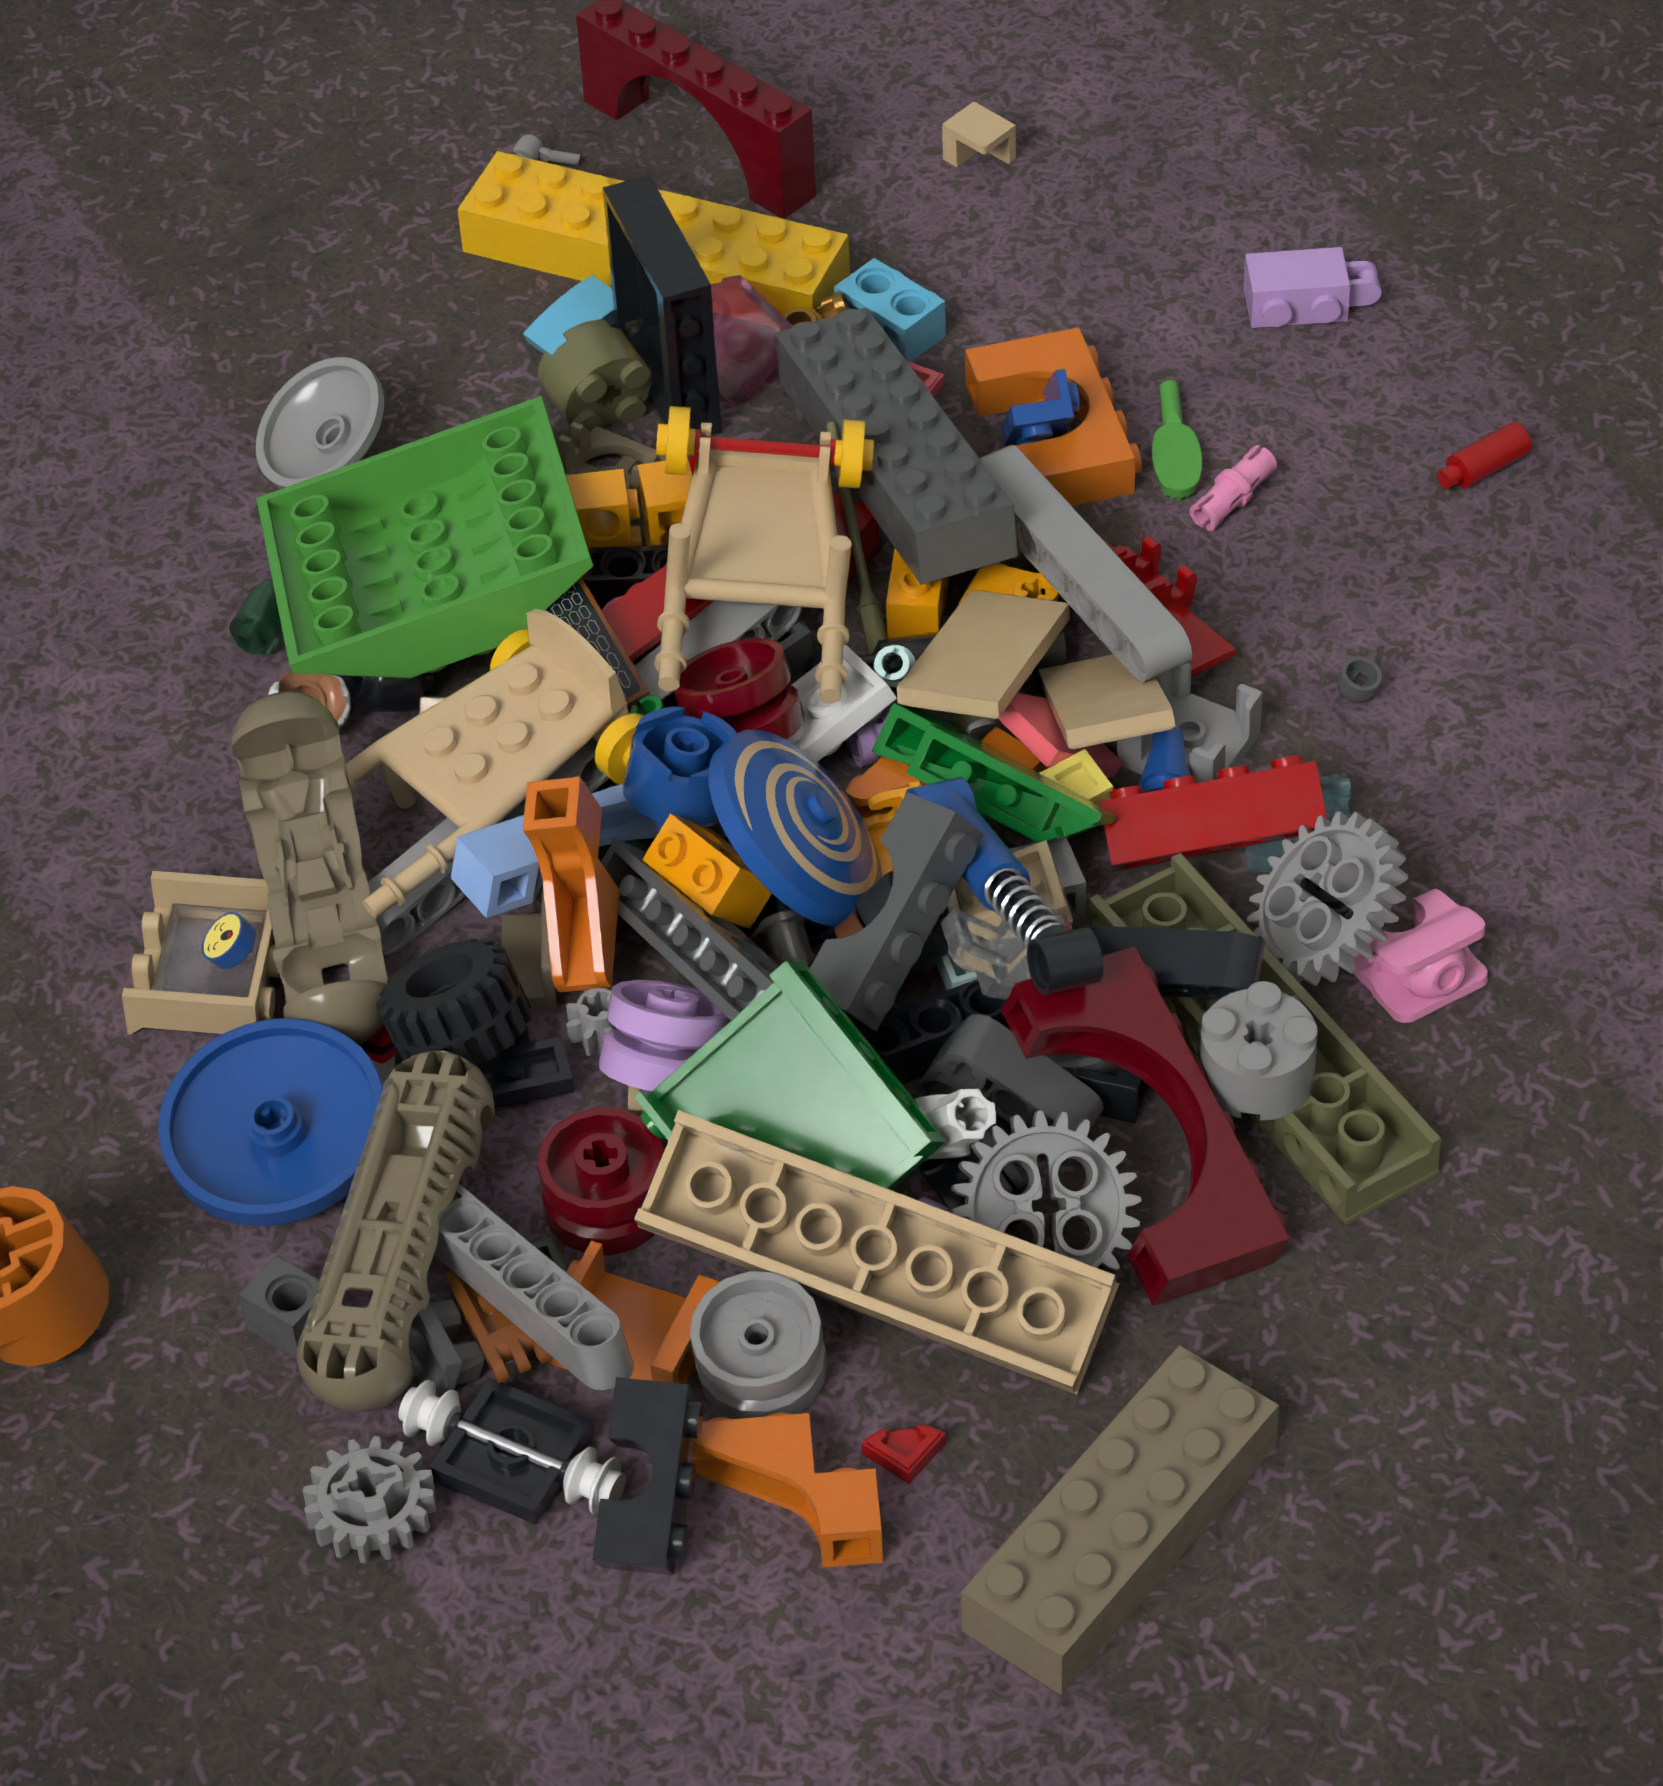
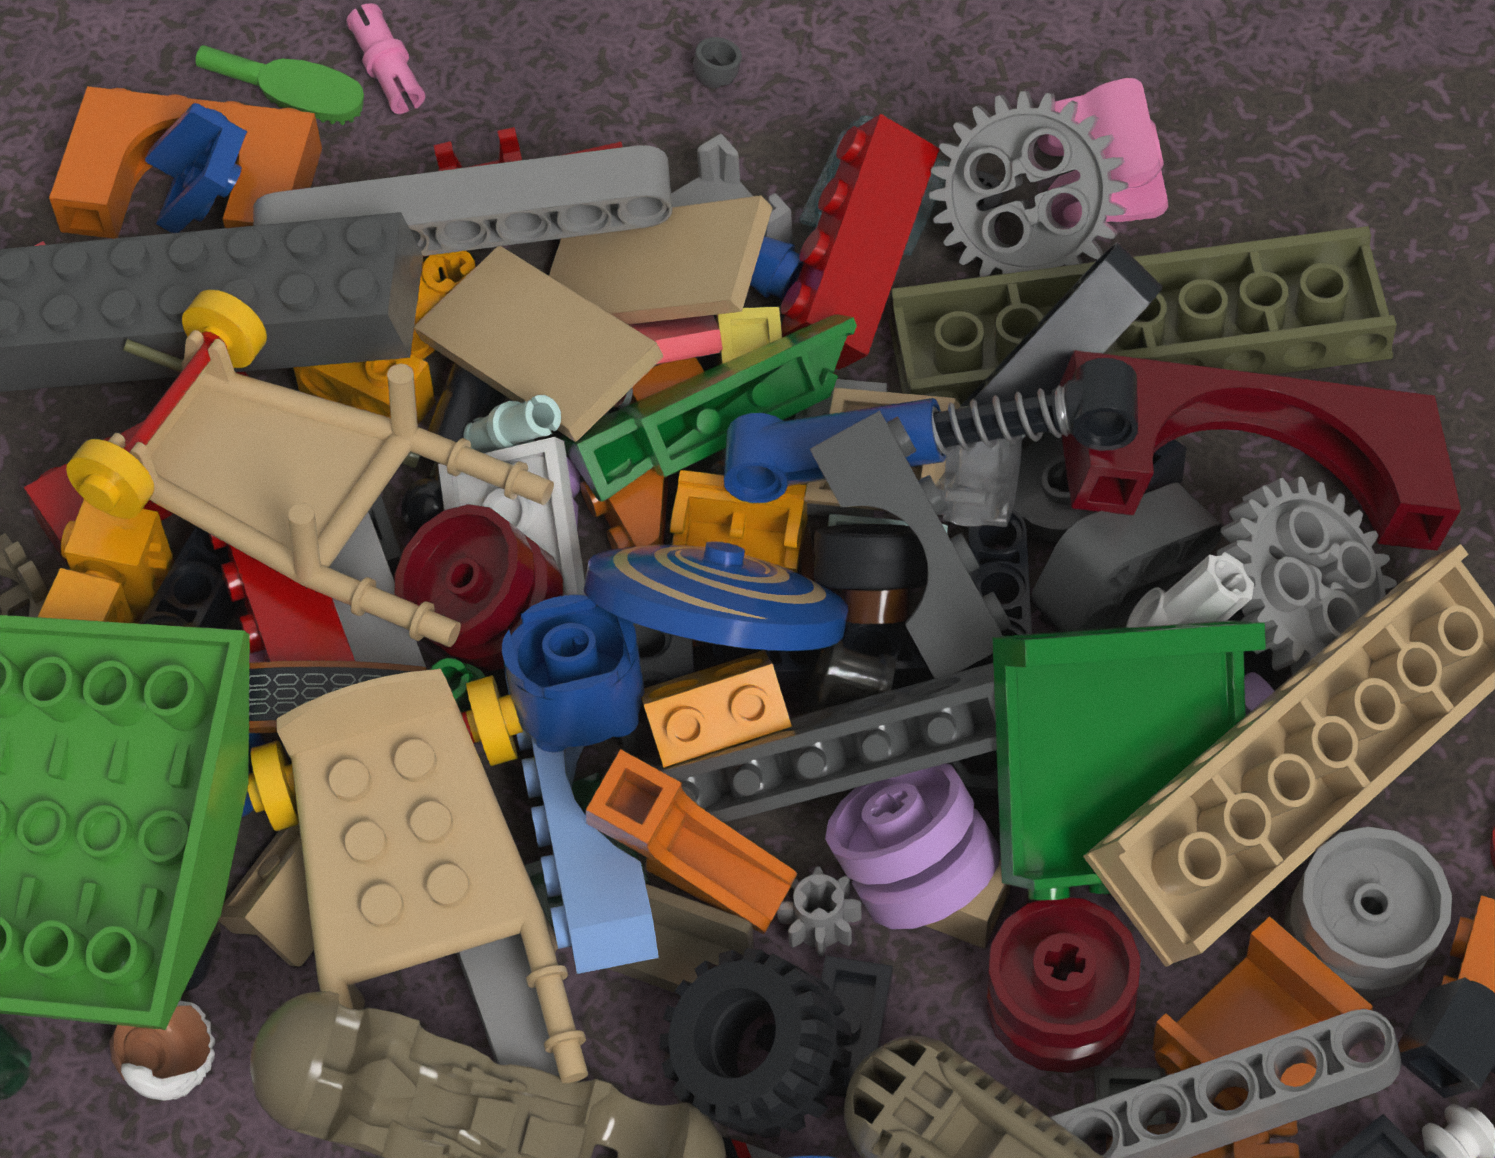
camera: 65 degrees left, 10 degrees up
(1259, 1051) = (1223, 309): light grey brick -> none

